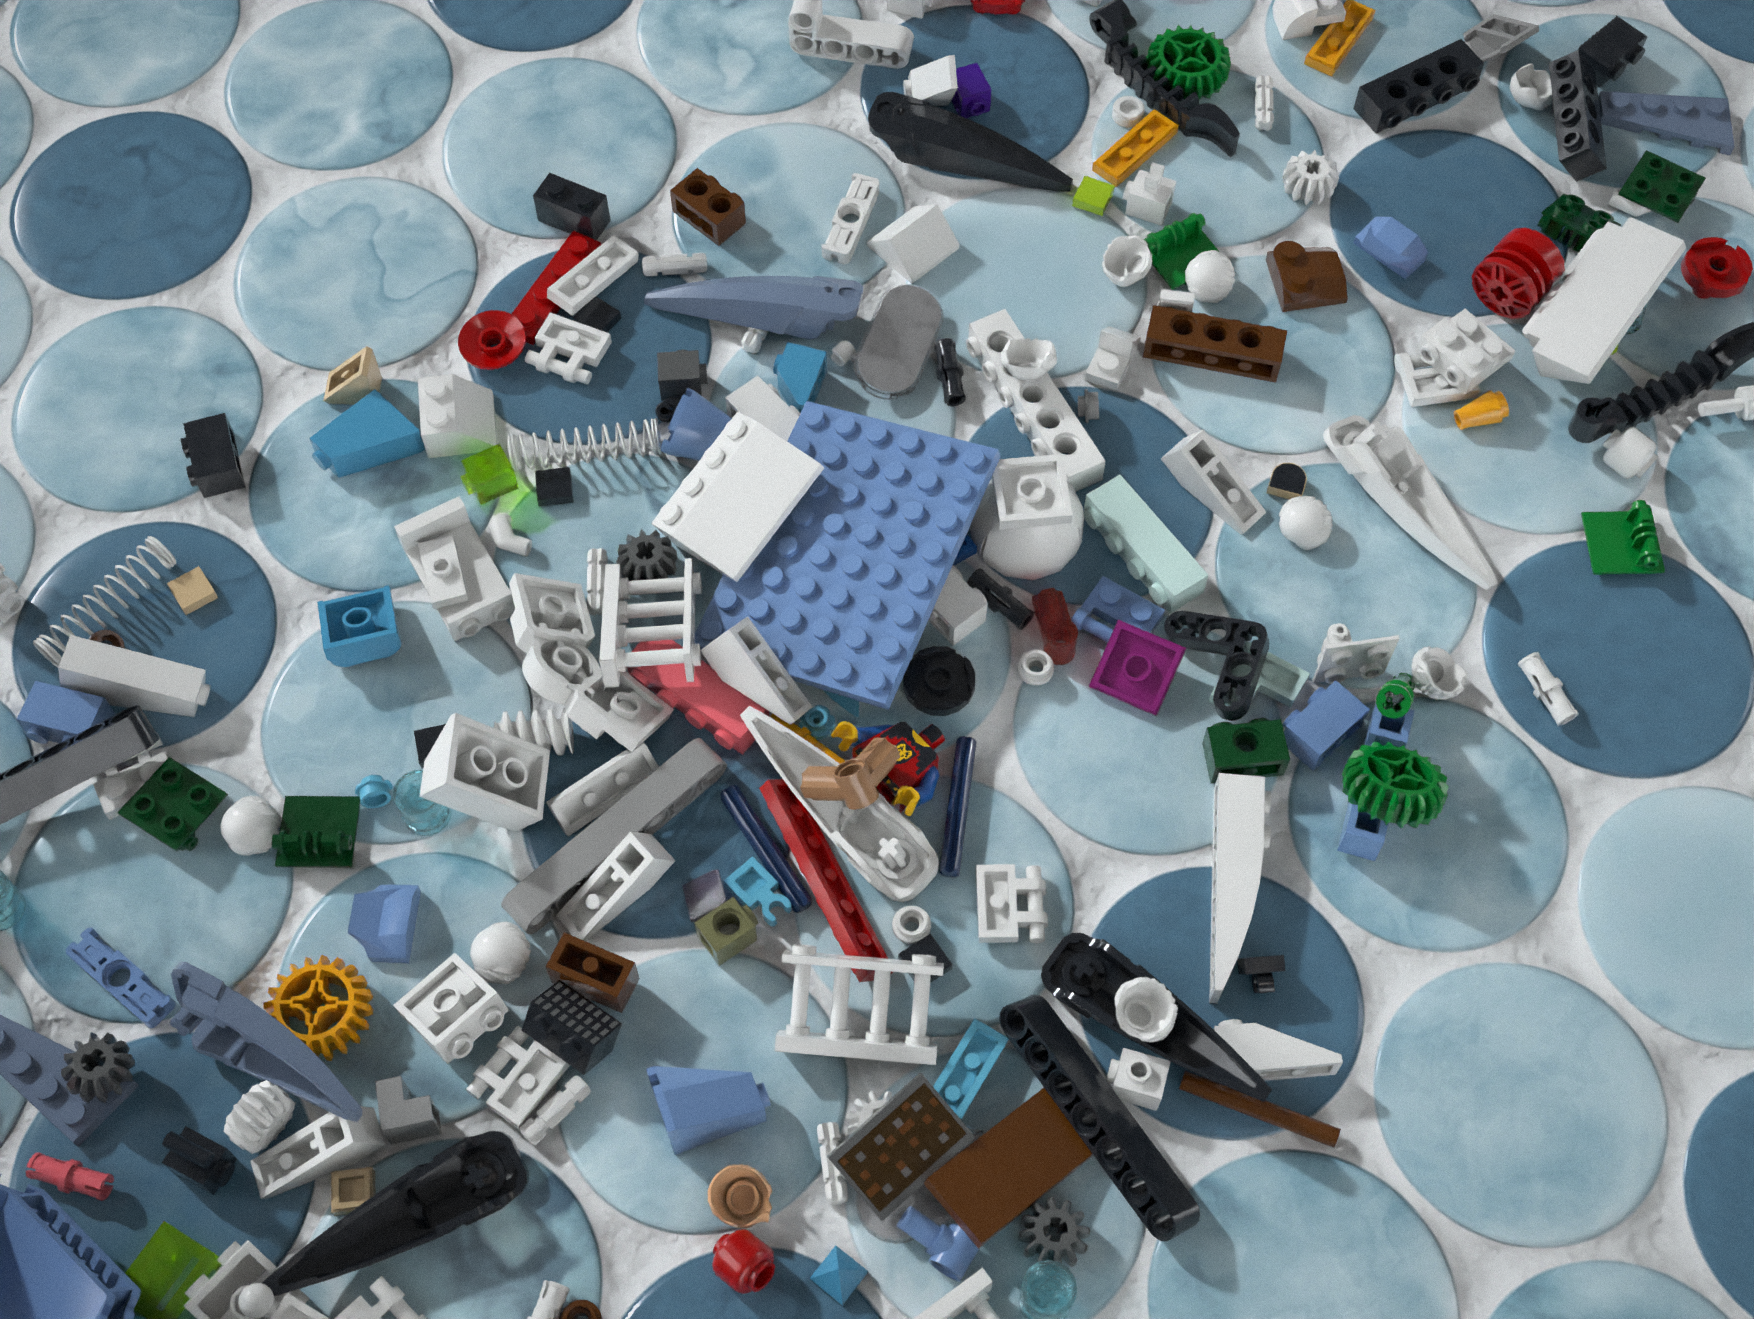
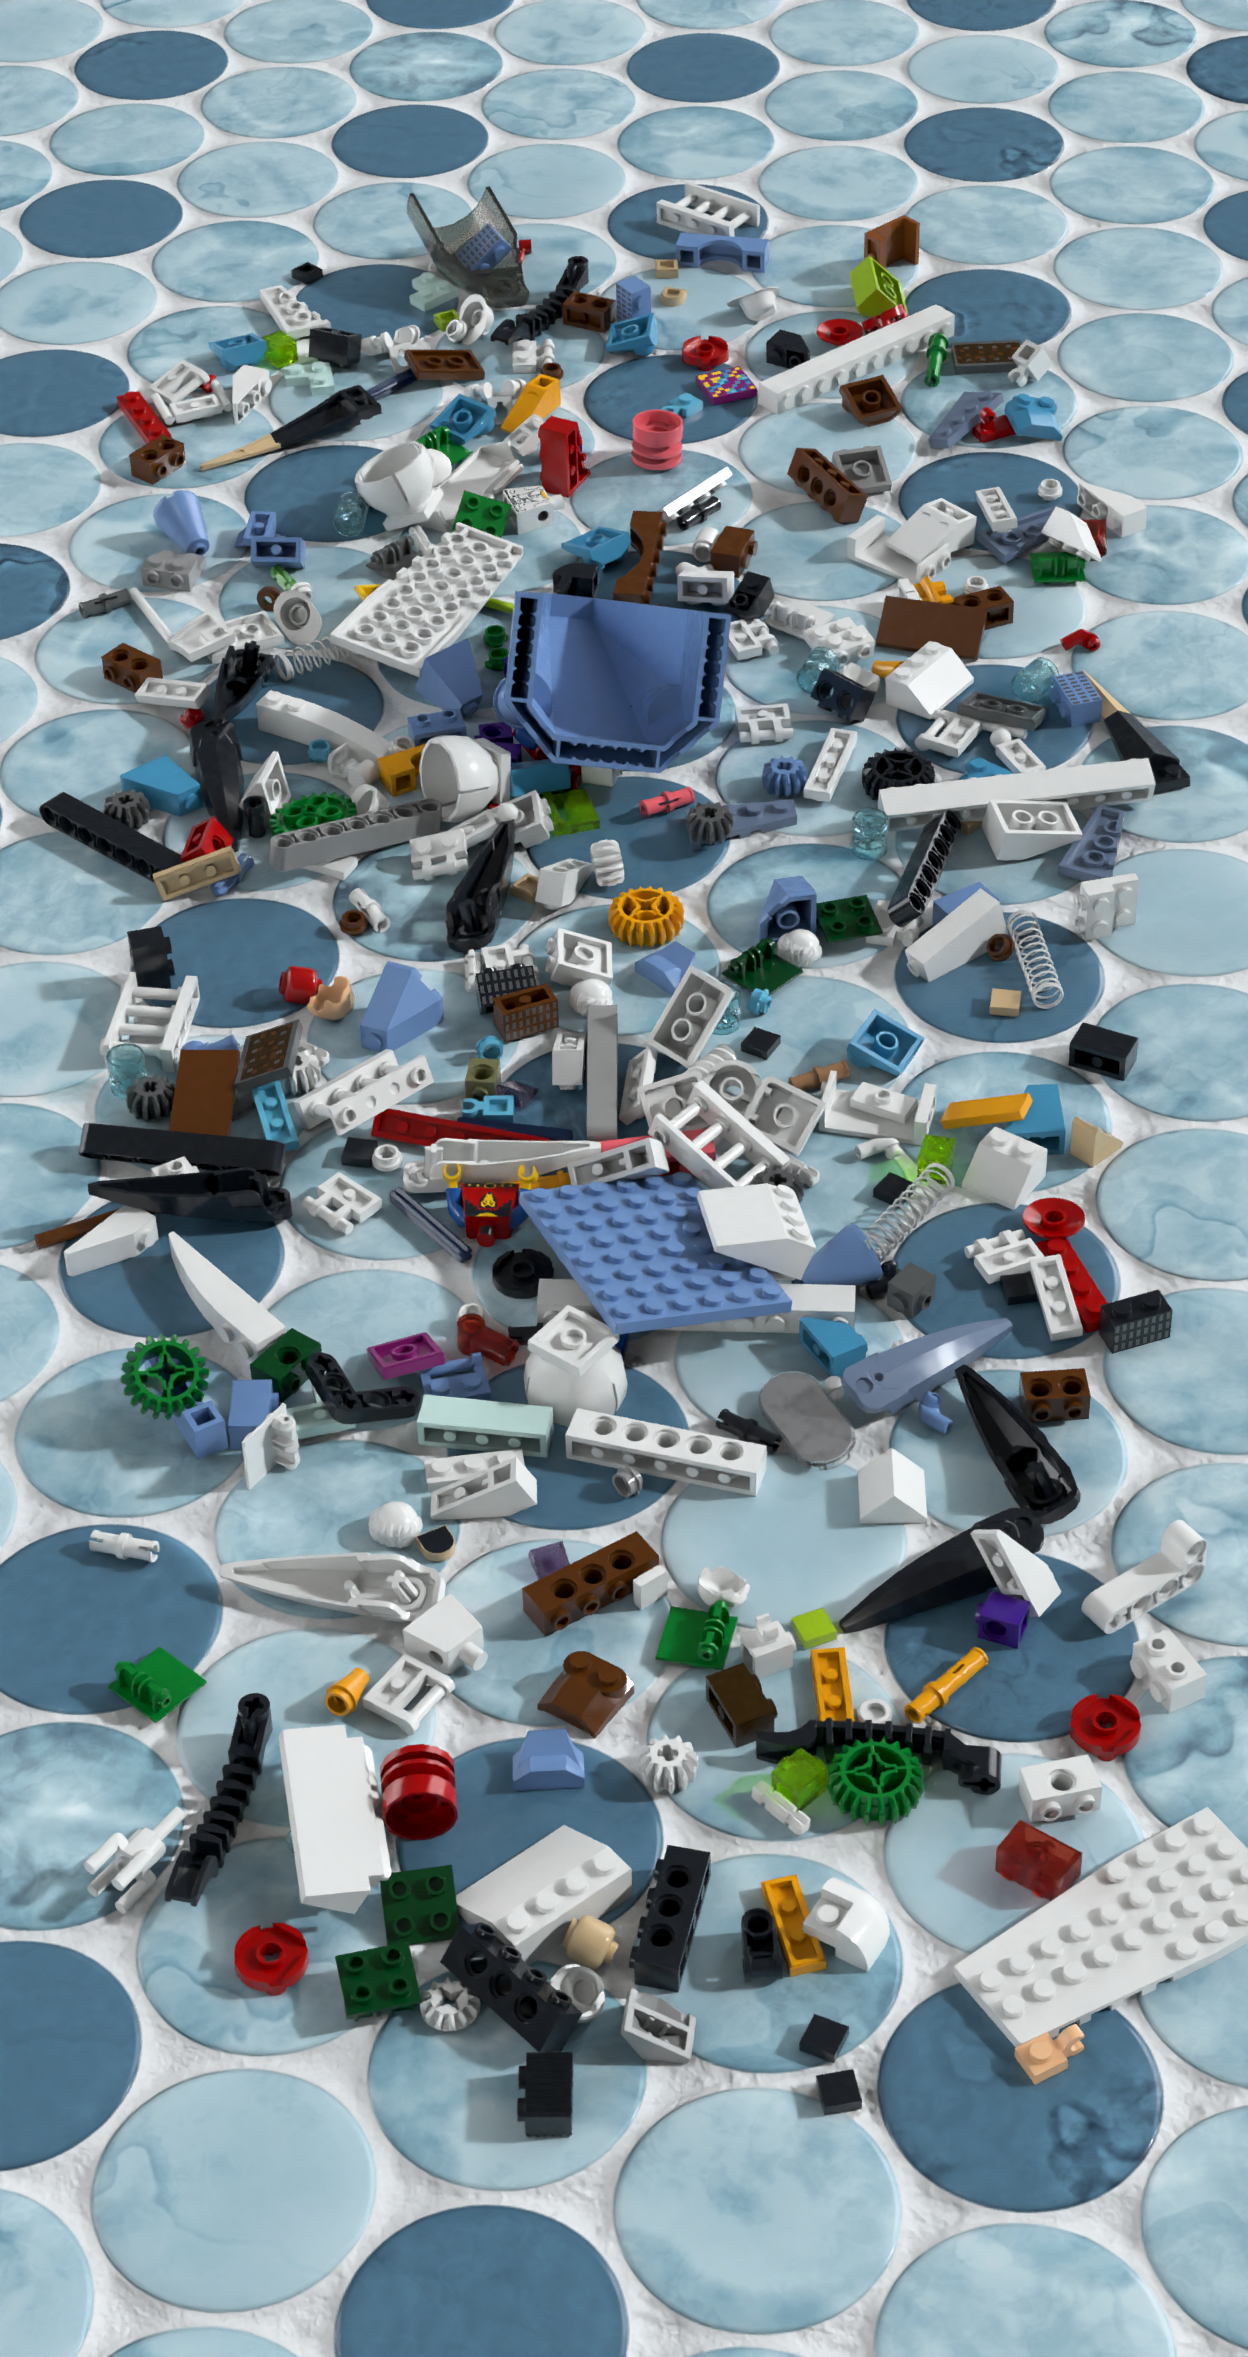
camera: 135 degrees right, 20 degrees down
(137, 994) = (748, 865): medium blue piece -> none
(195, 872) = (788, 908): none -> medium blue slope
(198, 1160) = (616, 828): black brick -> none
(253, 1041) = (666, 865): sand blue piece -> none
(393, 469) = (986, 1111): none -> light orange tile
(403, 1117) = (542, 913): light grey piece -> none
(450, 651) = (815, 1077): none -> medium nougat pin
(668, 976) = (494, 1052): none -> medium azure plate
(674, 264) = (1022, 1353): white axle -> none
(800, 175) = (1020, 1451): none -> black piece
(807, 265) = (930, 1413): none -> medium blue arm
(839, 1275) = (247, 1021): dark azure slope -> none
(843, 235) = (966, 1489): white piece -> none
(854, 779) = (489, 1149): medium nougat piece -> none
(1028, 358) = (689, 1435): white hair -> none
(1060, 87) = (937, 1693): none -> light orange pin
(1112, 358) = (657, 1528): white slope -> none
(1145, 1009) = (199, 1180): white hair -> none
(1192, 523) = (451, 1469): none -> white plate
(1210, 276) = (652, 1628): white hair -> none
(1214, 176) = (740, 1704): none -> dark brown brick
(1216, 399) = (548, 1559): none -> clear purple slope
(1237, 99) = (800, 1778): none -> clear neon green brick
(1261, 971) = (160, 1273): black tile -> none
(1368, 388) = (446, 1637): none -> white torso
(1383, 32) = (760, 1950): none -> black piece
(1402, 697) = (212, 1419): green pin -> none
(1437, 673) = (205, 1491): white hair -> none
(1463, 350) = (400, 1703): white plate -> none
(1487, 164) = (545, 1888): none -> white slope
(1490, 111) = (590, 1942): none -> tan head
(1629, 158) = (445, 2016): none -> white gear
(1629, 452) = (206, 1739): white head -> none
(1684, 117) = (431, 2087): sand blue wing -> none

